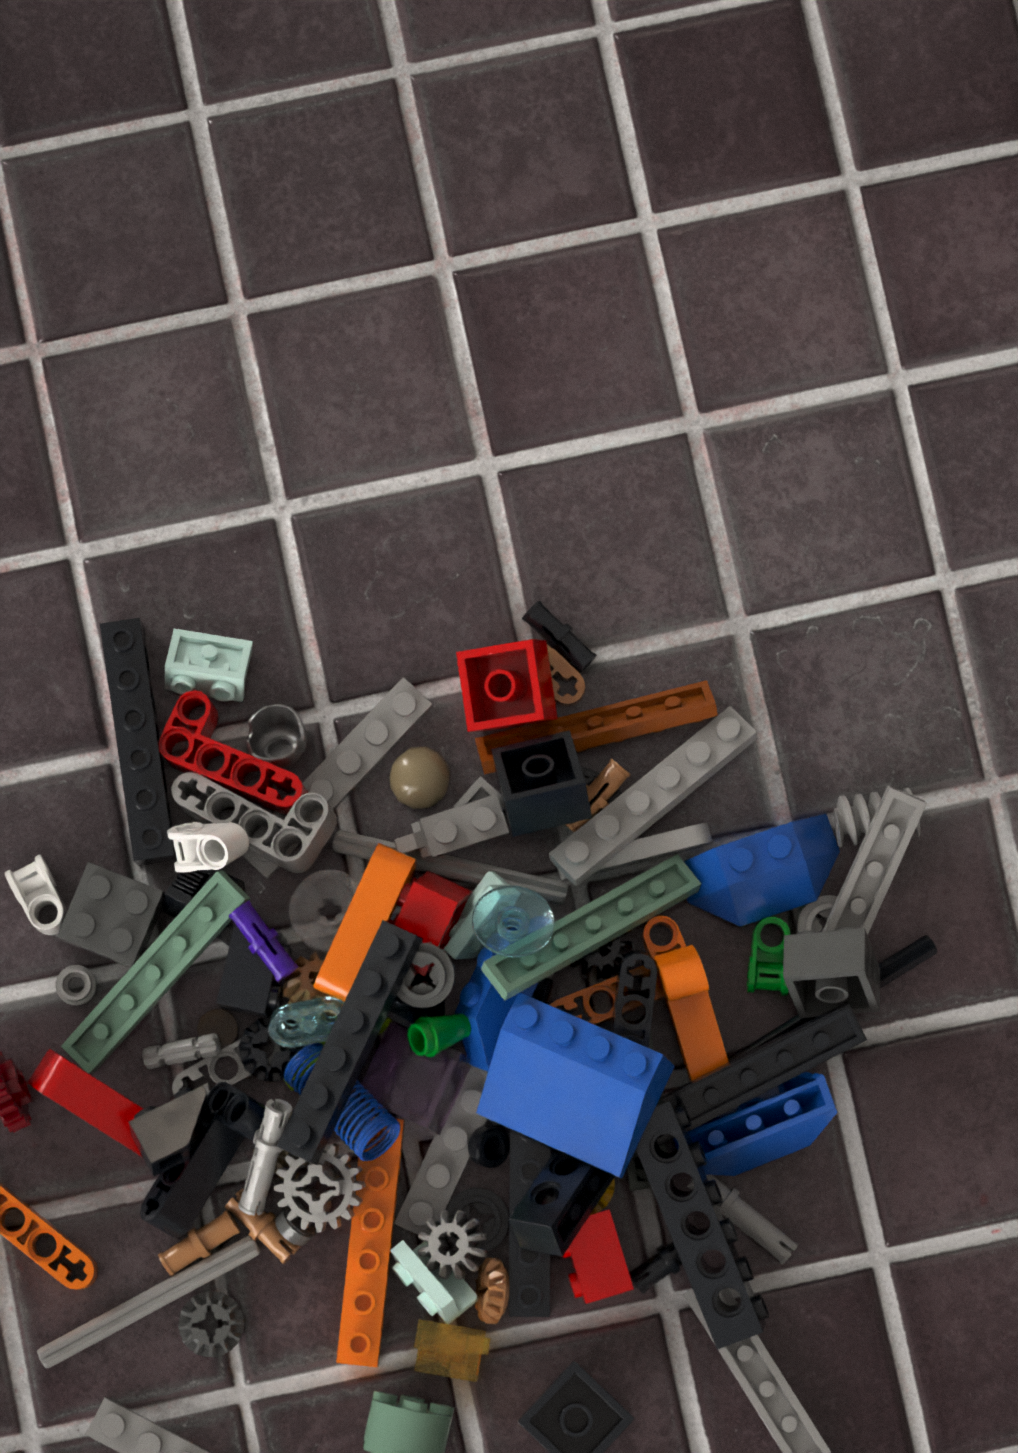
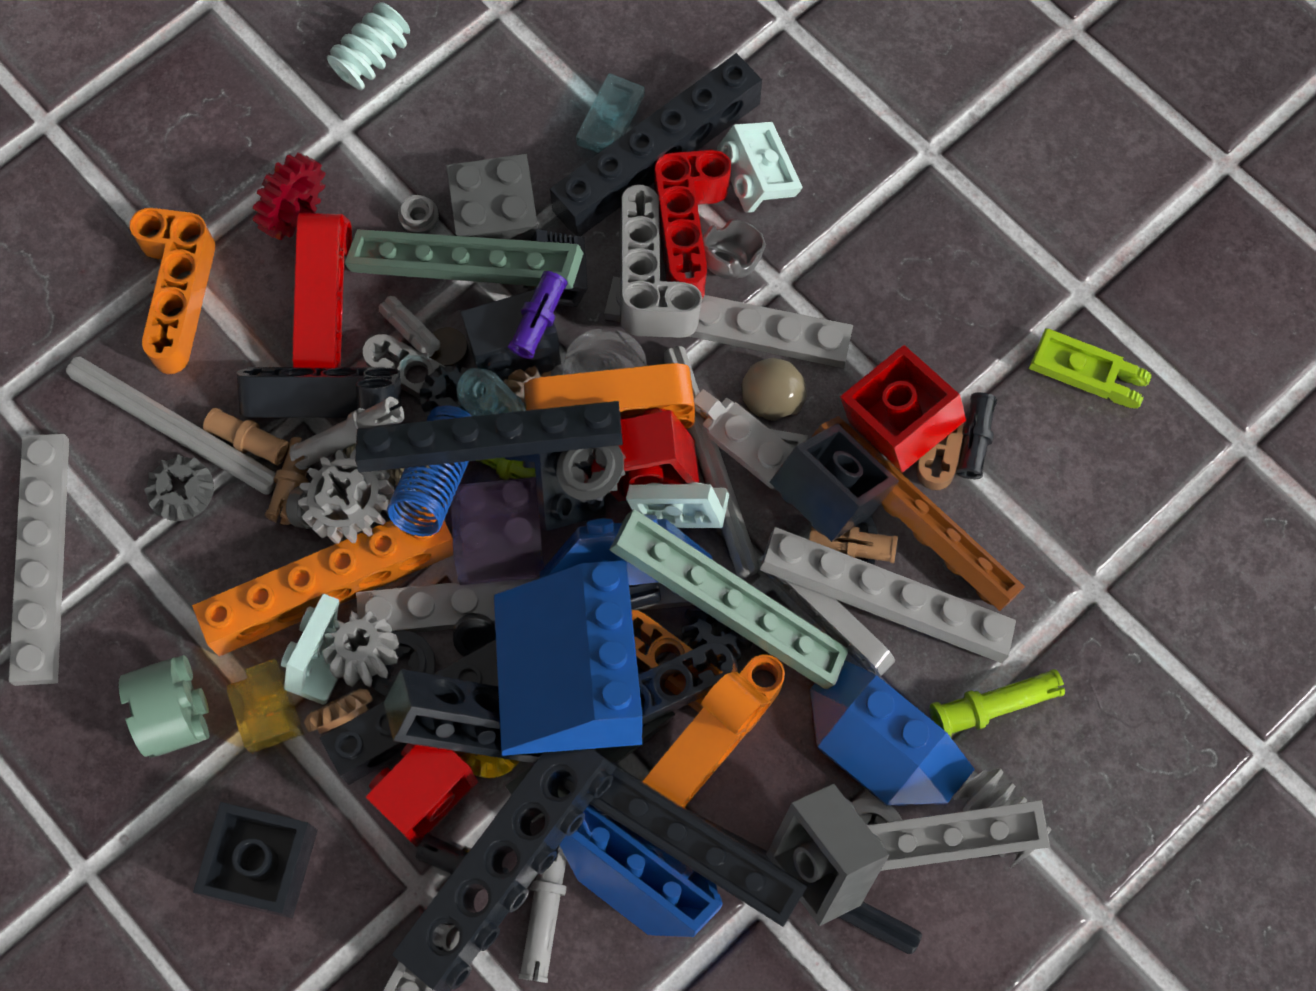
camera: 60 degrees right, 10 degrees down
(35, 889) = (478, 136): white piece -> none
(81, 764) = (610, 113): none -> clear light blue plate
(170, 1131) = (326, 343): black slope -> none
(207, 845) = (599, 234): white piece -> none
(436, 1033) = (545, 515): green cone -> none
(515, 908) = (700, 510): clear light blue dish -> none
(554, 510) = (1088, 368): none -> lime hinge
(767, 960) = (800, 784): green piece -> none
(783, 782) = (977, 708): none -> lime pin

